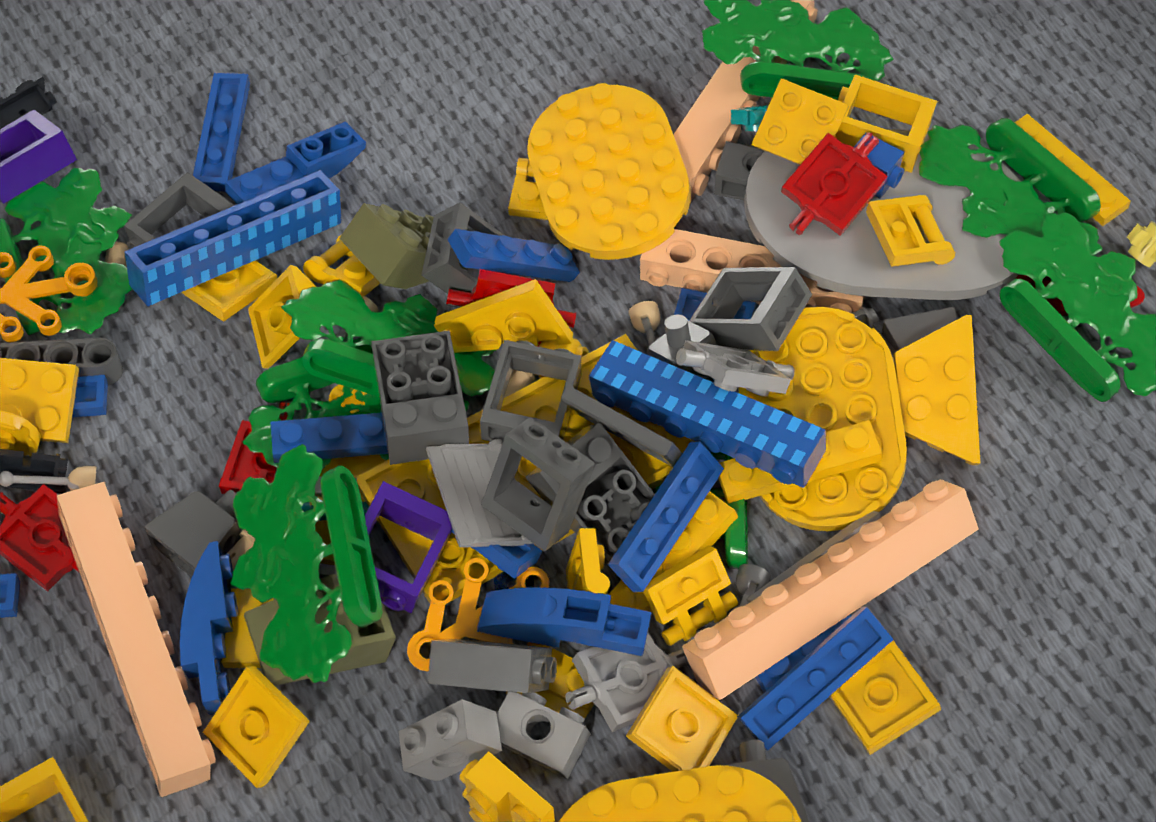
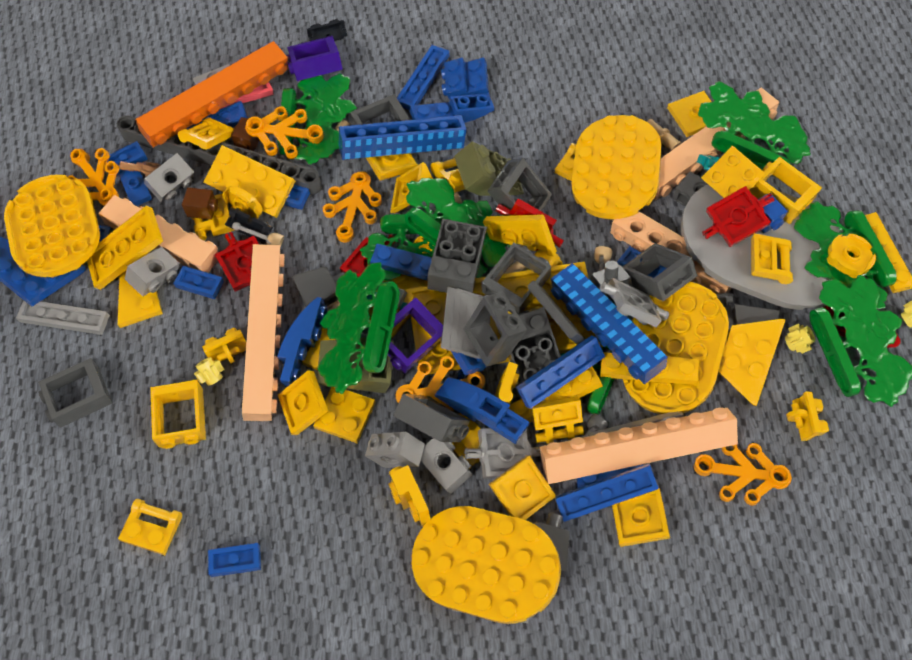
camera: 25 degrees right, 5 degrees up
(65, 737) = (209, 371): none -> light yellow gear
(77, 687) = (225, 347): none -> yellow hips
(192, 373) = (352, 202): none -> light orange plant
(294, 109) = (465, 77): none -> blue plate
(340, 720) = (345, 415): none -> yellow plate
(513, 255) = (542, 196): blue plate -> none
(672, 106) = (665, 136): none -> tan pin
(682, 53) = (686, 113): none -> yellow plate
(1000, 338) = (800, 338): none -> light yellow gear
(1008, 568) = (745, 472): none -> light orange plant
(1029, 203) = (853, 266): none -> yellow plate
(1059, 450) = (805, 415): none -> yellow hips

